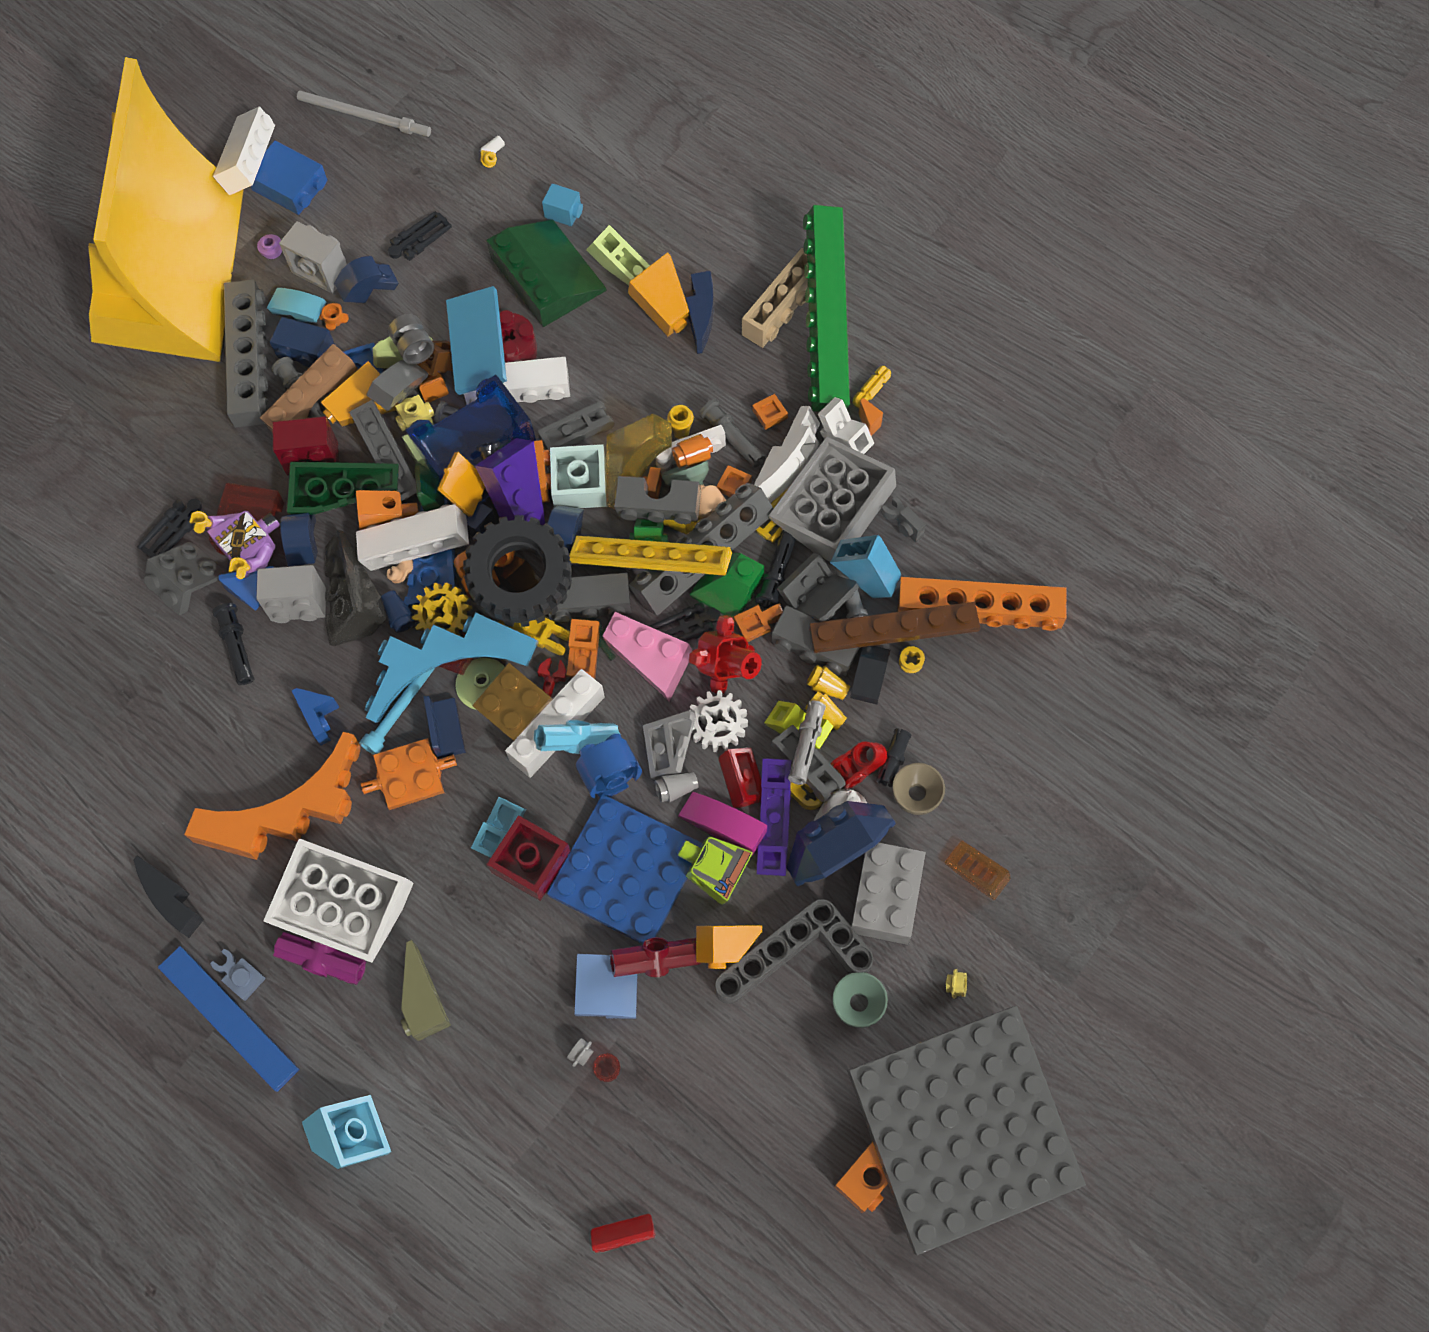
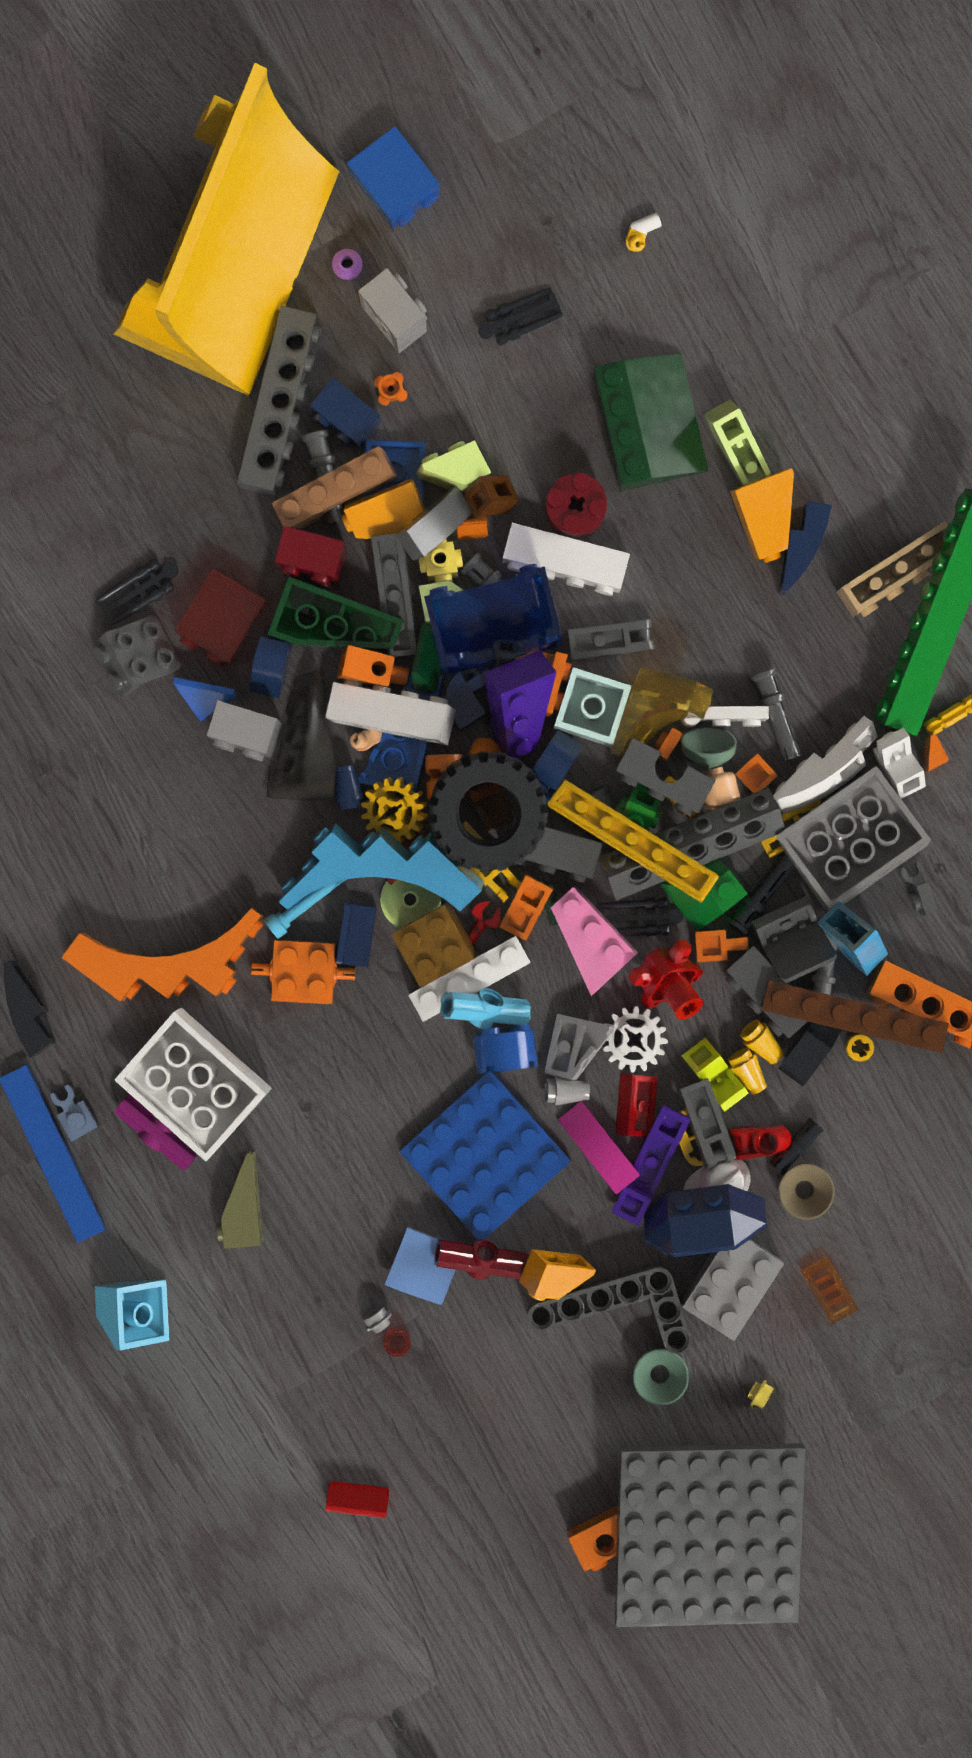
camera: 20 degrees right, 20 degrees up
(231, 632) = (168, 743): black pin -> none
(240, 539) = (210, 654): torso -> none
(244, 150) = (355, 130): white brick -> none
(299, 304) = (354, 358): medium azure slope -> none
(314, 708) = (226, 862): blue slope -> none
(361, 277) = (440, 358): dark blue brick -> none
(405, 124) = (555, 153): light grey bar -> none
(411, 339) = (466, 472): flat silver wheel -> none
(462, 484) = (463, 681): light orange piece -> none
(475, 339) = (538, 501): dark azure tile -> none
(497, 826) = (374, 1064): medium azure slope -> none
(529, 858) = (394, 1113): dark red brick -> none
(562, 205) = (698, 343): dark azure brick -> none
(681, 420) = (732, 676): yellow cone -> none
(692, 451) = (724, 731): orange brick -> none
(715, 866) = (574, 1192): lime torso -> none
(770, 411) = (828, 703): orange plate -> none
(809, 731) = (710, 1111): light grey pin -> none

